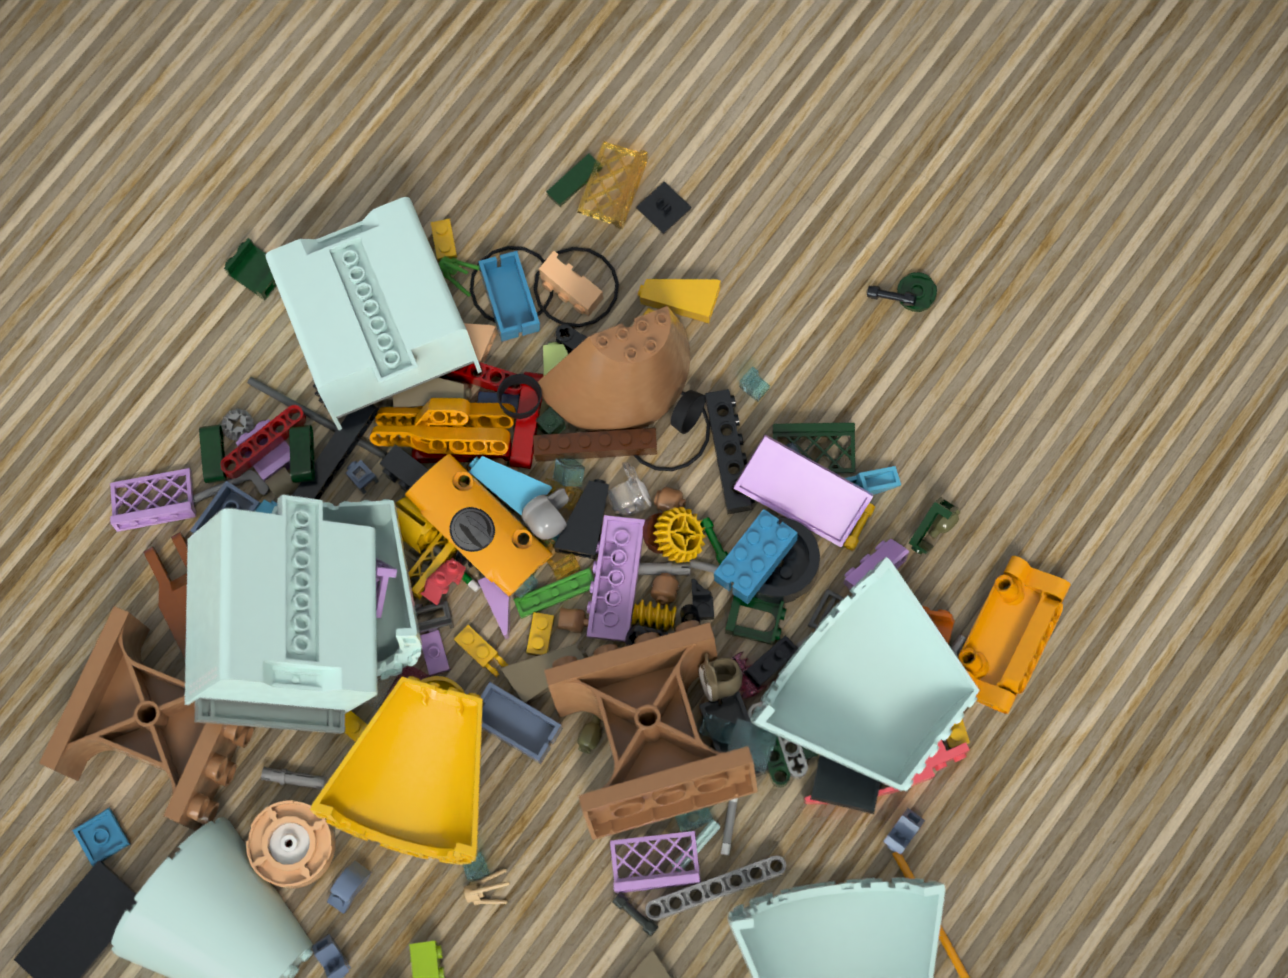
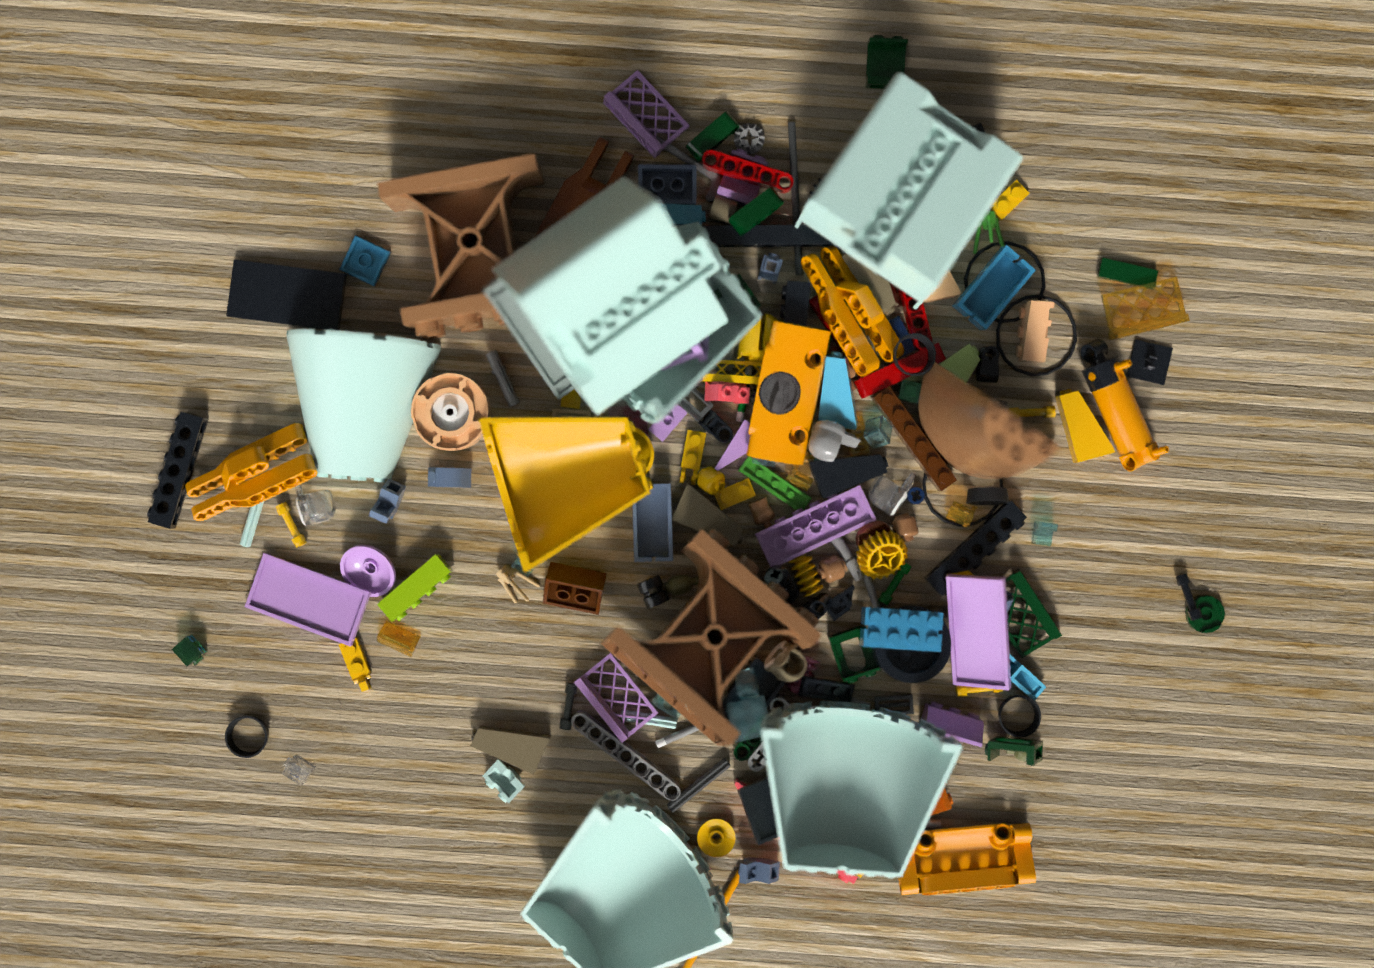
camera: 50 degrees right, 15 degrees up
(468, 612) = (715, 426): none -> black piece
(512, 646) = (711, 480): none -> yellow head
(528, 836) = (574, 588): none -> reddish brown slope
(586, 766) = (655, 598): none -> black wheel
(649, 469) = (921, 494): none -> dark blue bush
(683, 253) = (1119, 406): none -> light orange piece
(689, 445) = (961, 513): none -> clear yellow tile
(788, 839) = (699, 784): none -> dark grey axle
(852, 842) = (716, 847): none -> yellow dish
(911, 487) = (1032, 728): none -> black tyre

